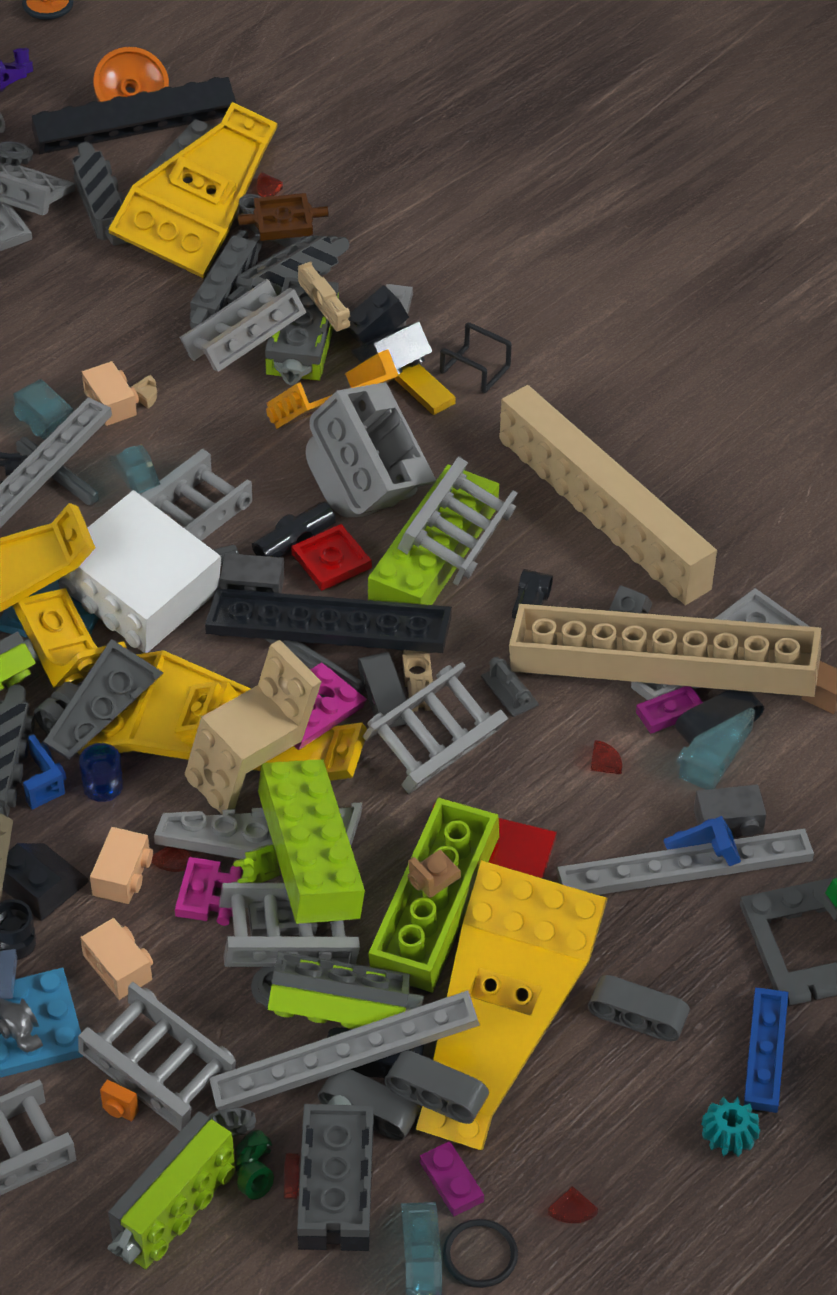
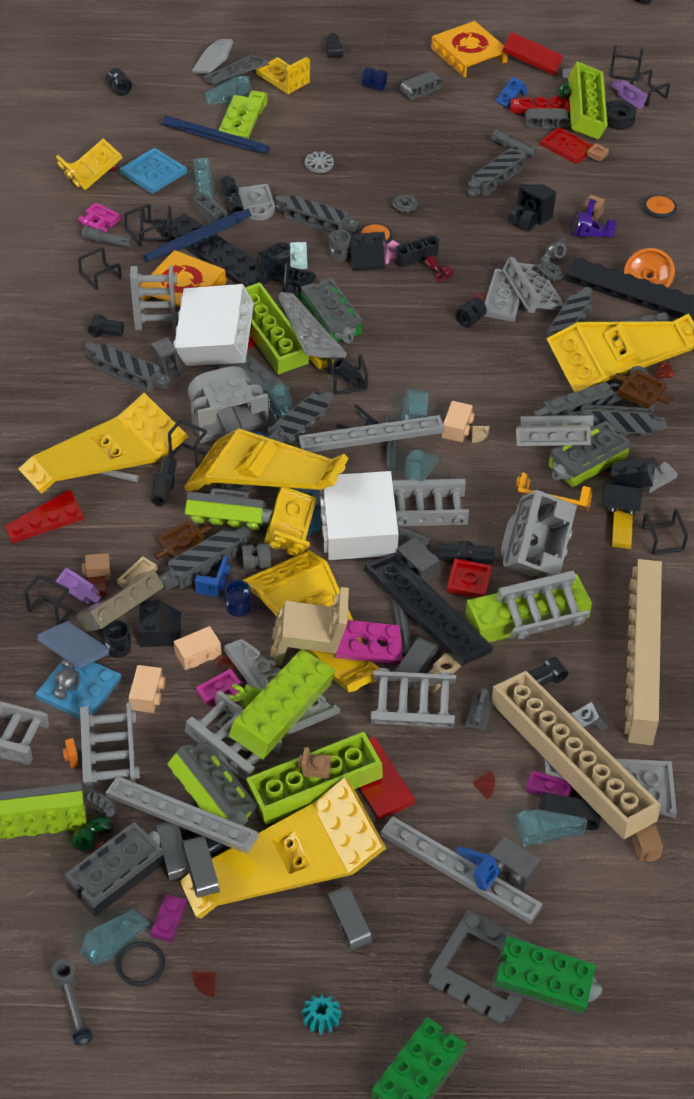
camera: 45 degrees right, 0 degrees up
(105, 693) = (271, 561): dark grey wing -> none
(323, 296) = (609, 443): tan piece -> none
(766, 1049) = (386, 994): blue plate -> none

